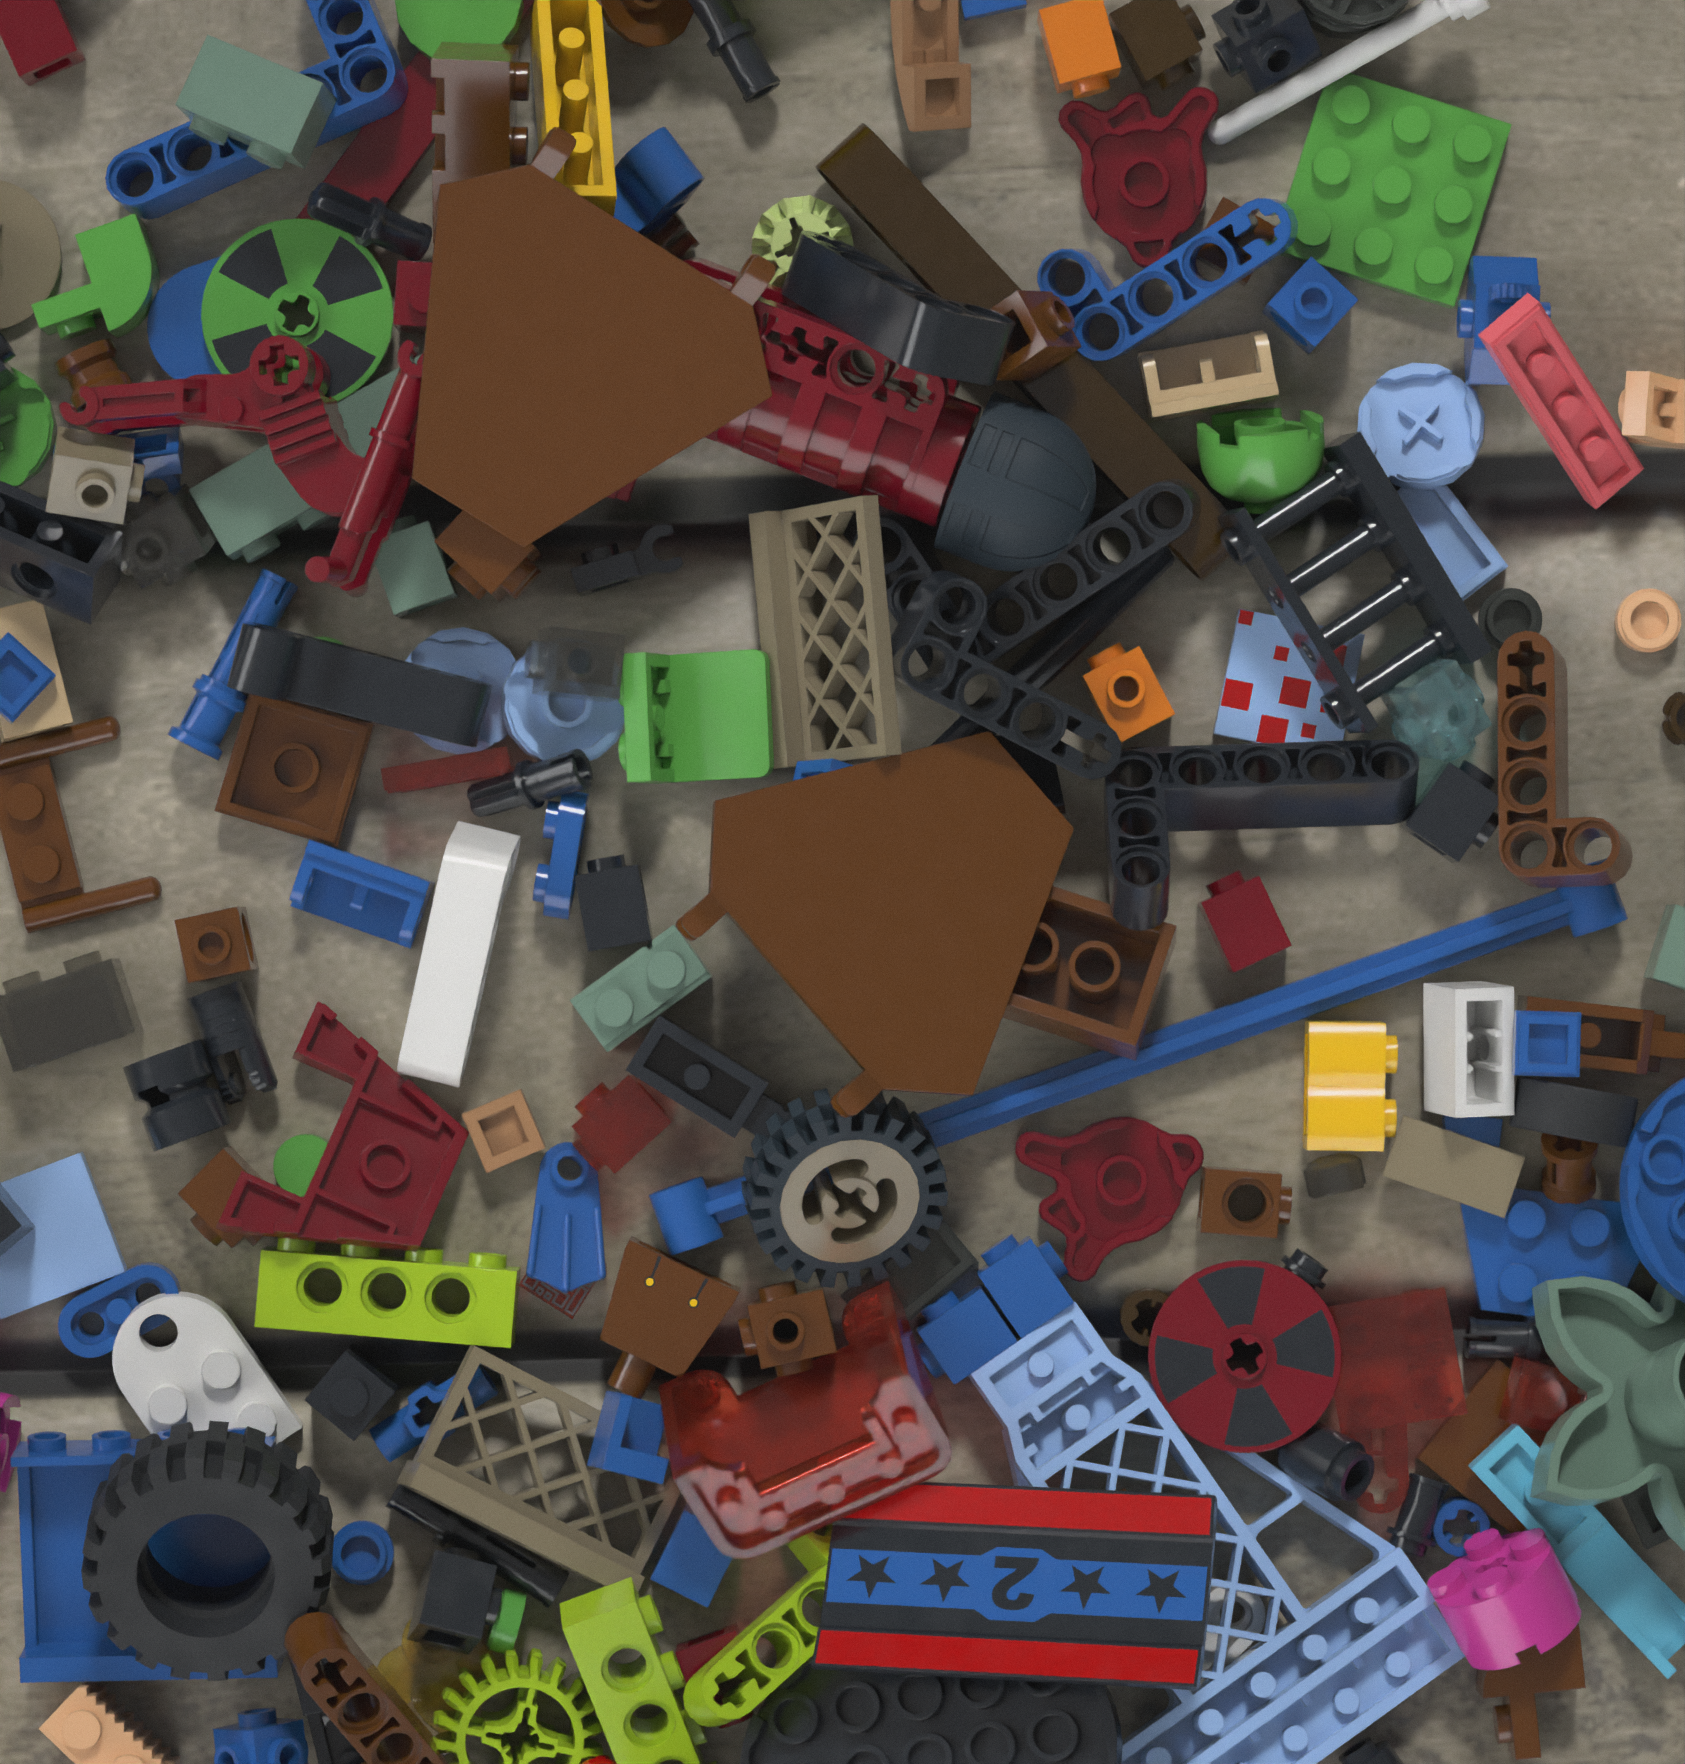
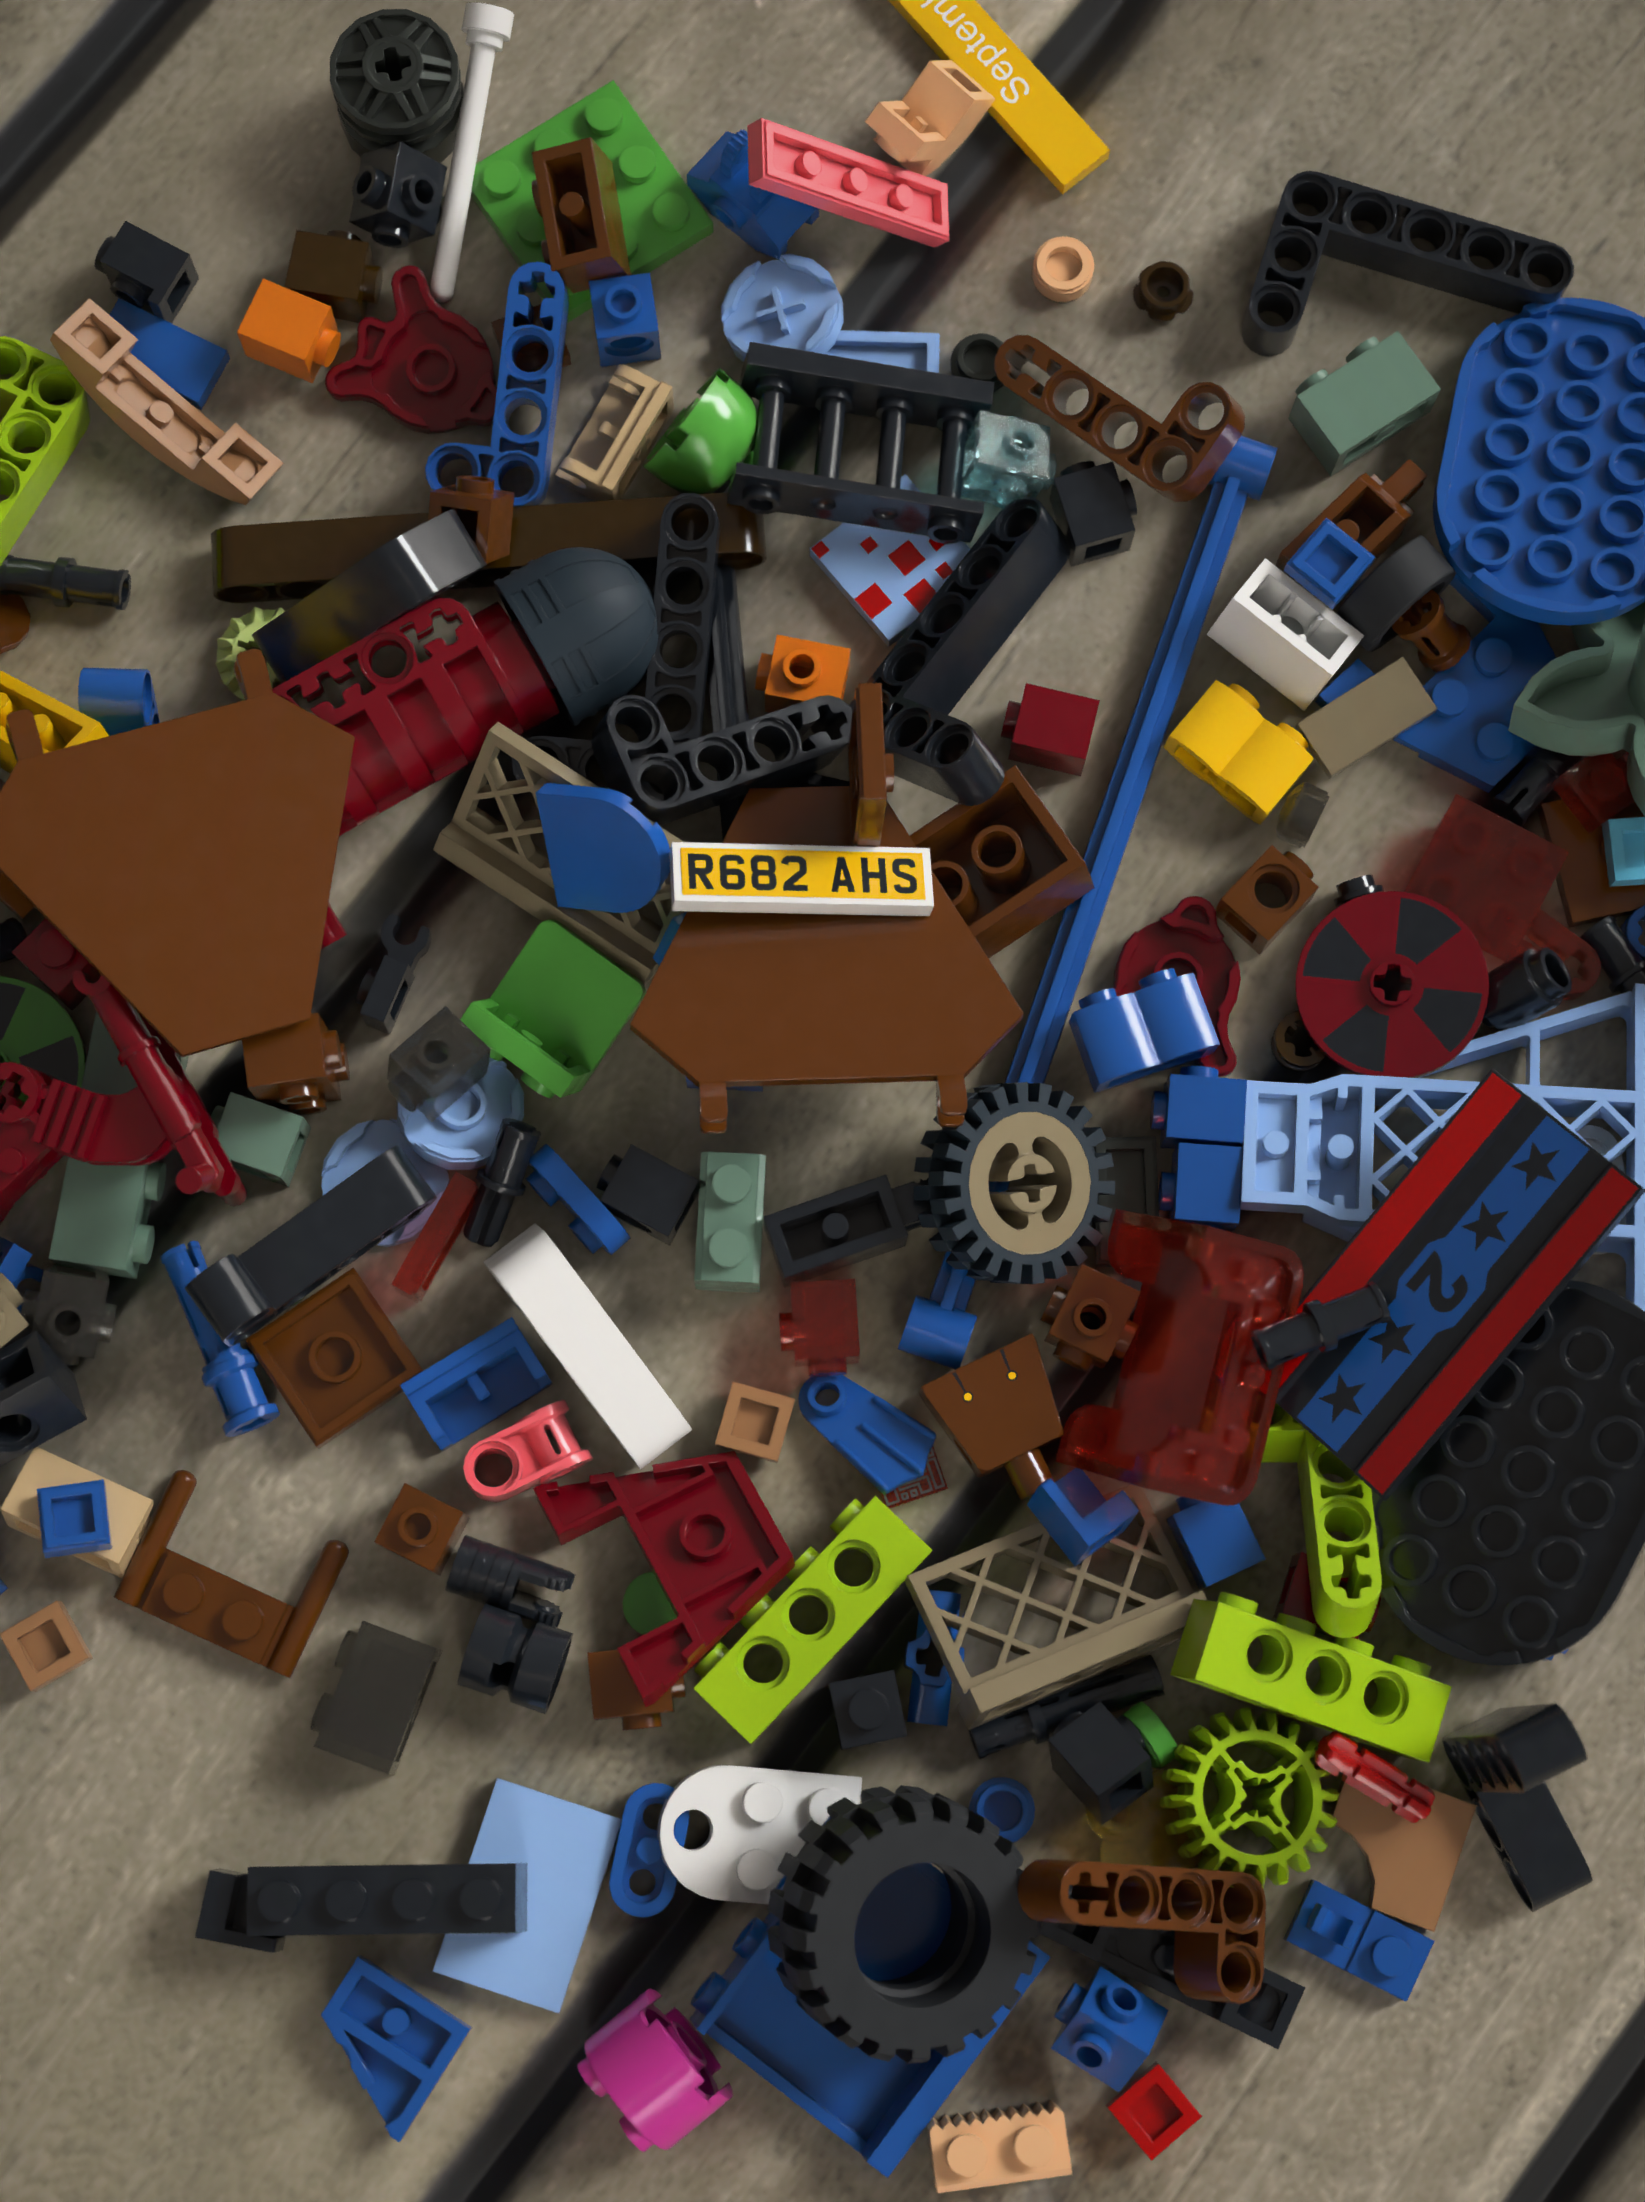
camera: 50 degrees left, 10 degrees down
(341, 977) = (529, 1452): none -> coral piece
(841, 658) = (601, 848): none -> blue tile
(908, 1515) = (1320, 1326): none -> black pin
(939, 837) = (801, 879): none -> tile
(1049, 1190) = (1142, 1030): none -> blue brick
(1067, 823) = (868, 766): none -> reddish brown plate
(1358, 206) = (579, 213): none -> reddish brown brick

